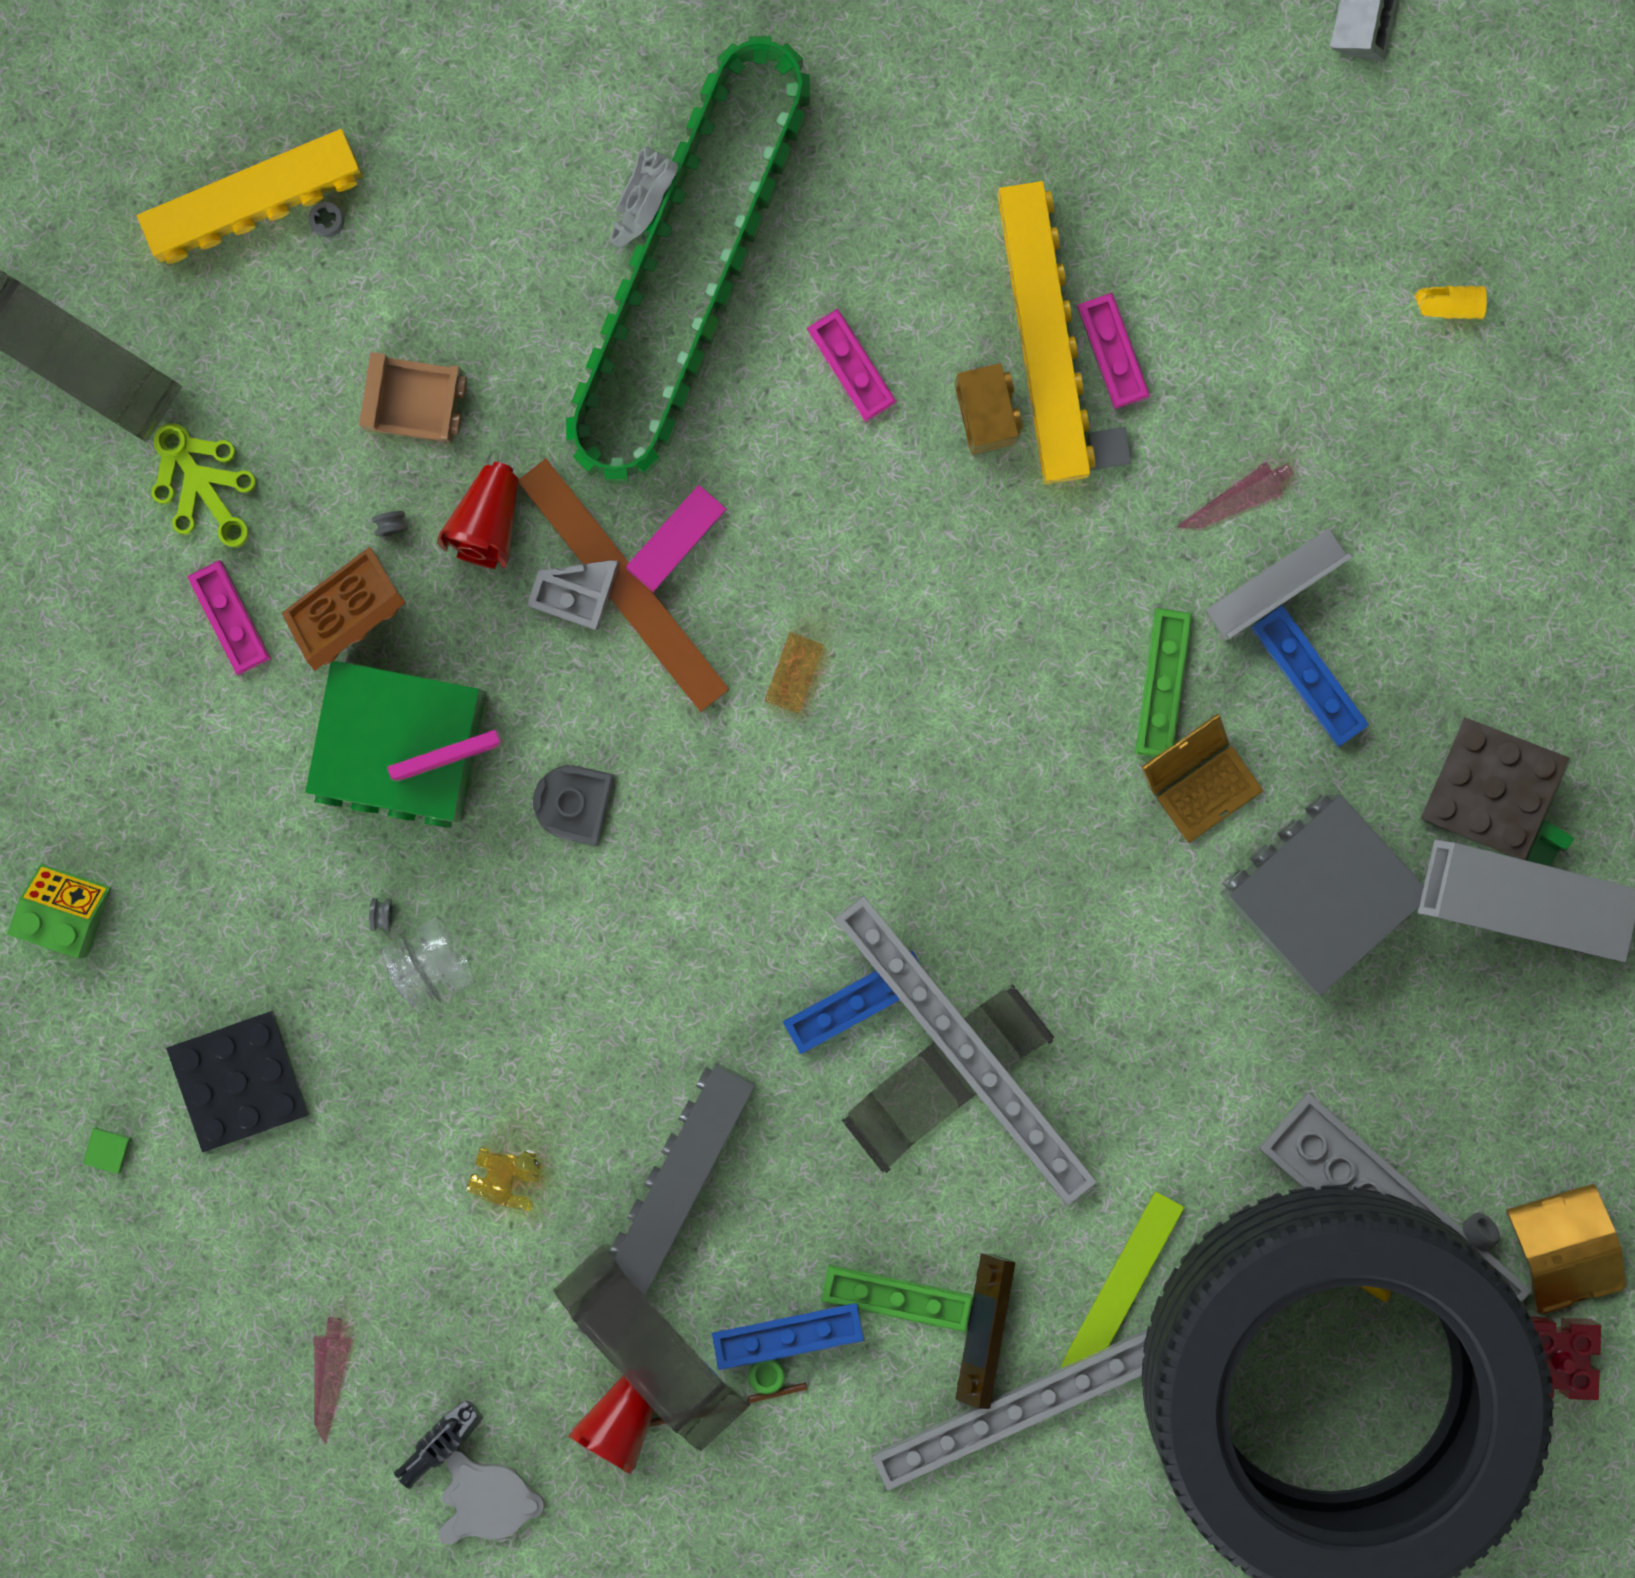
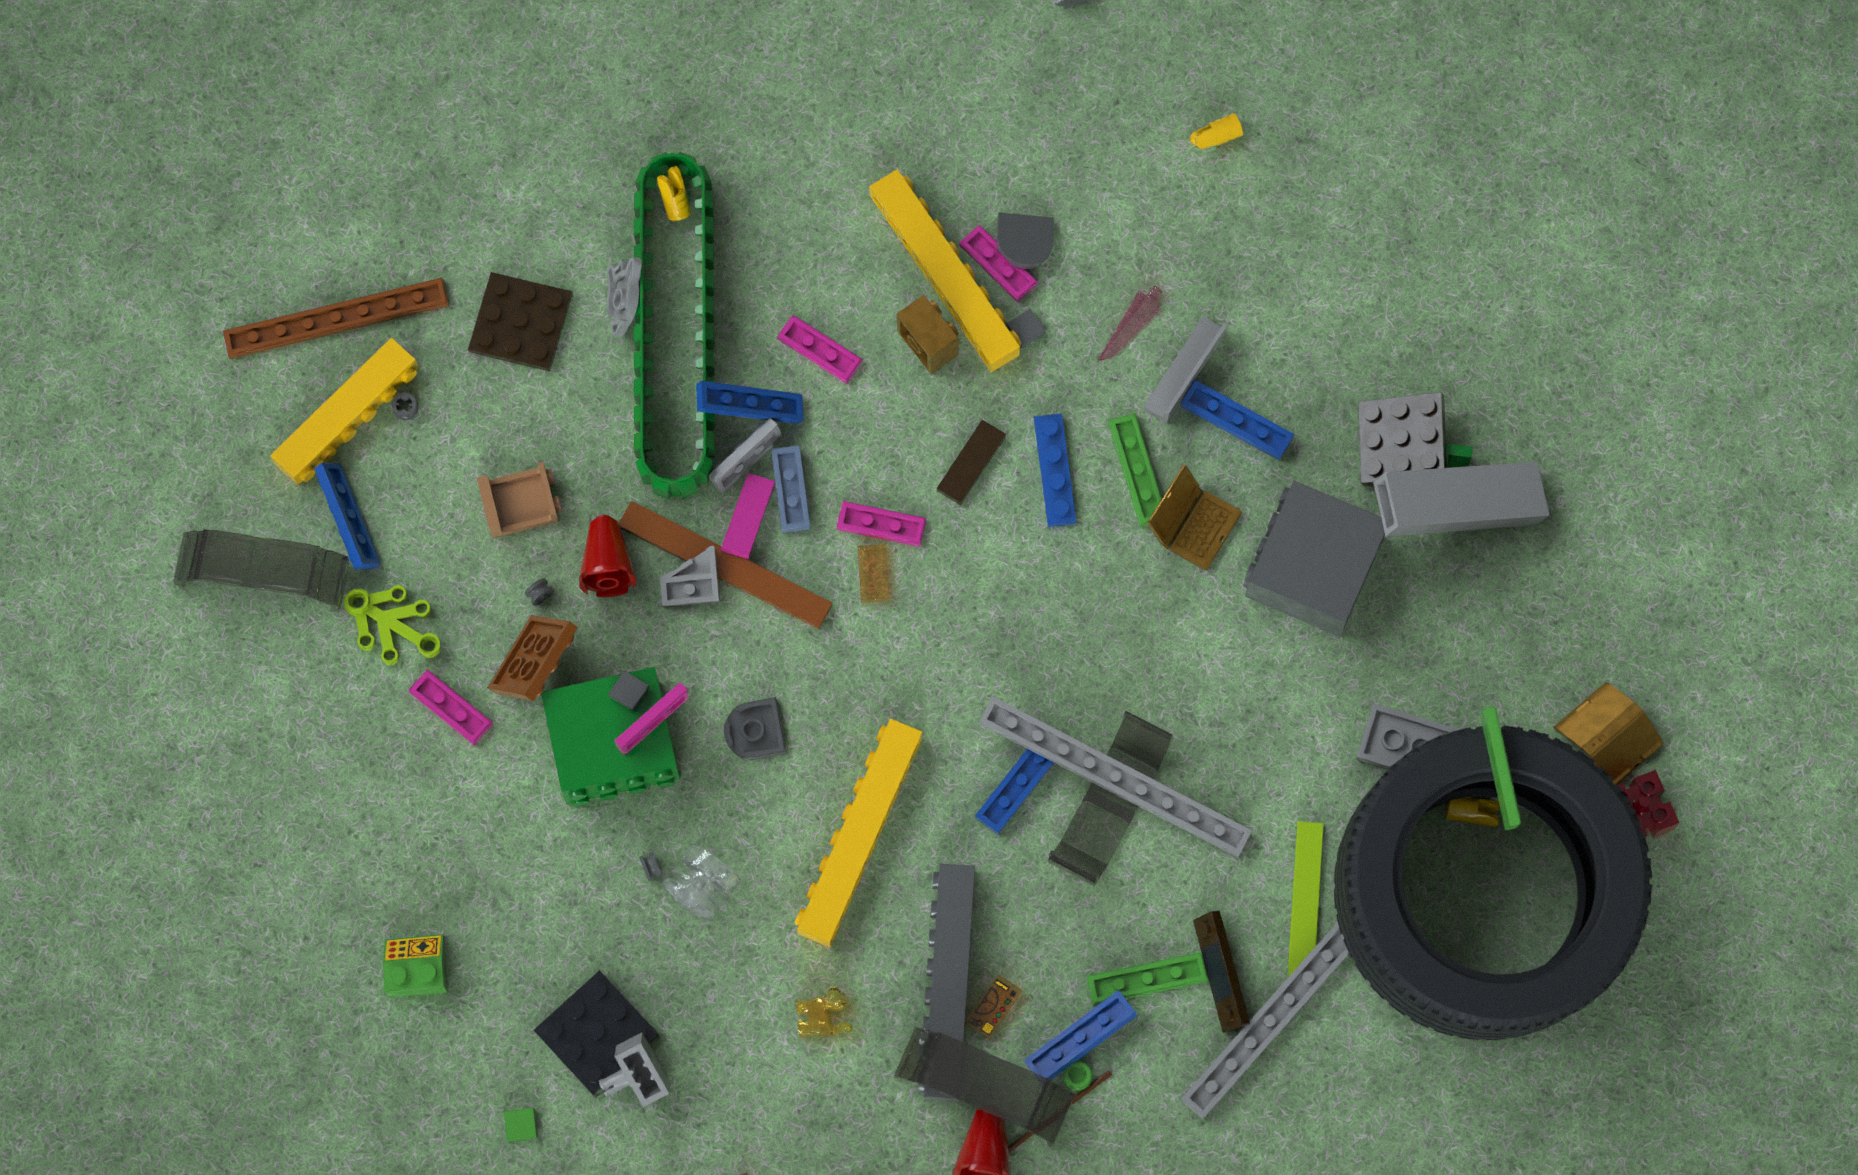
camera: 25 degrees left, 15 degrees down
(201, 329) = (347, 516): none -> blue plate
(265, 1155) = (639, 1070): none -> light grey brick
(289, 70) = (335, 318): none -> dark orange tile
(433, 706) = (628, 691): none -> dark grey tile
(508, 172) = (520, 321): none -> dark brown plate
(640, 982) = (859, 832): none -> yellow brick
(704, 462) = (745, 455): none -> light grey plate
(706, 1253) = (993, 1007): none -> clear orange tile
(734, 402) = (749, 402): none -> blue plate
(740, 527) = (790, 489): none -> sand blue plate
(758, 95) = (674, 195): none -> yellow hinge
(830, 616) = (881, 523): none -> dark pink tile
(970, 587) = (971, 462): none -> dark brown tile
(1064, 640) = (1054, 470): none -> blue plate
(1158, 335) = (1024, 239): none -> dark grey tile
(1417, 1295) = (1500, 768): none -> bright green tile

